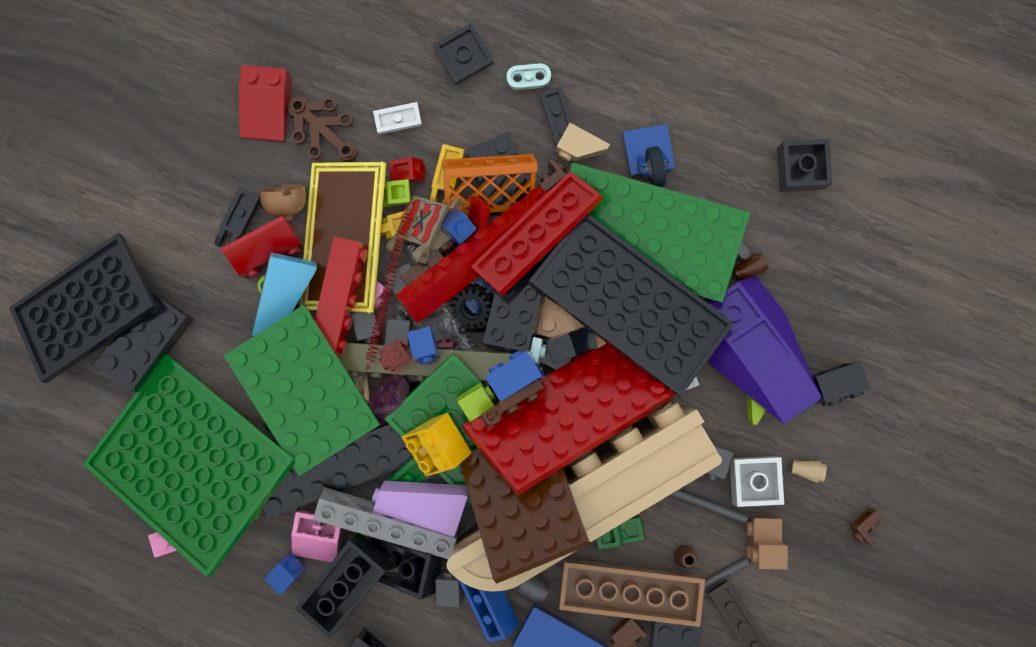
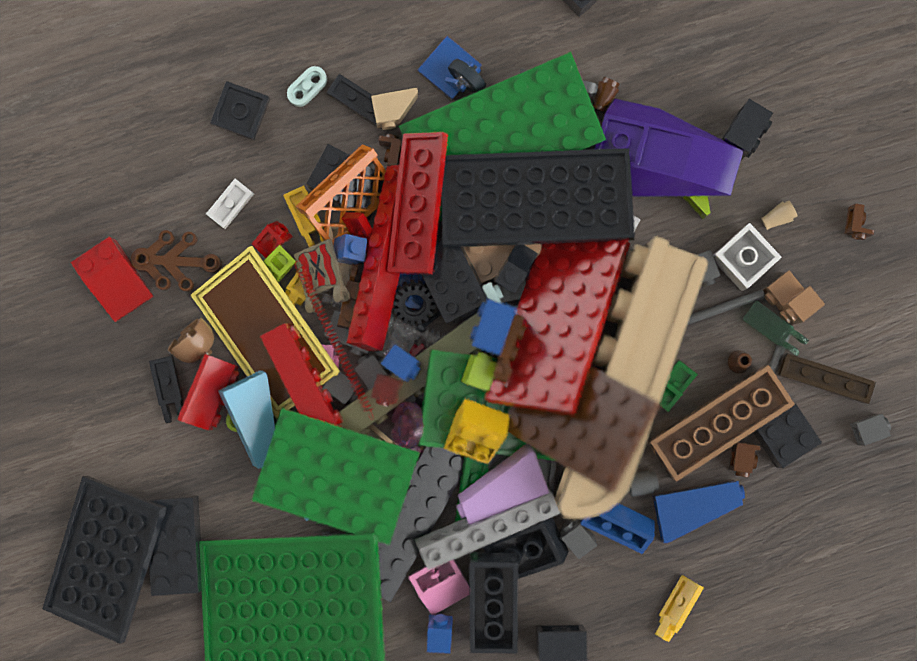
camera: 40 degrees left, 0 degrees up
(733, 552) = (773, 327): none -> clear green hinge

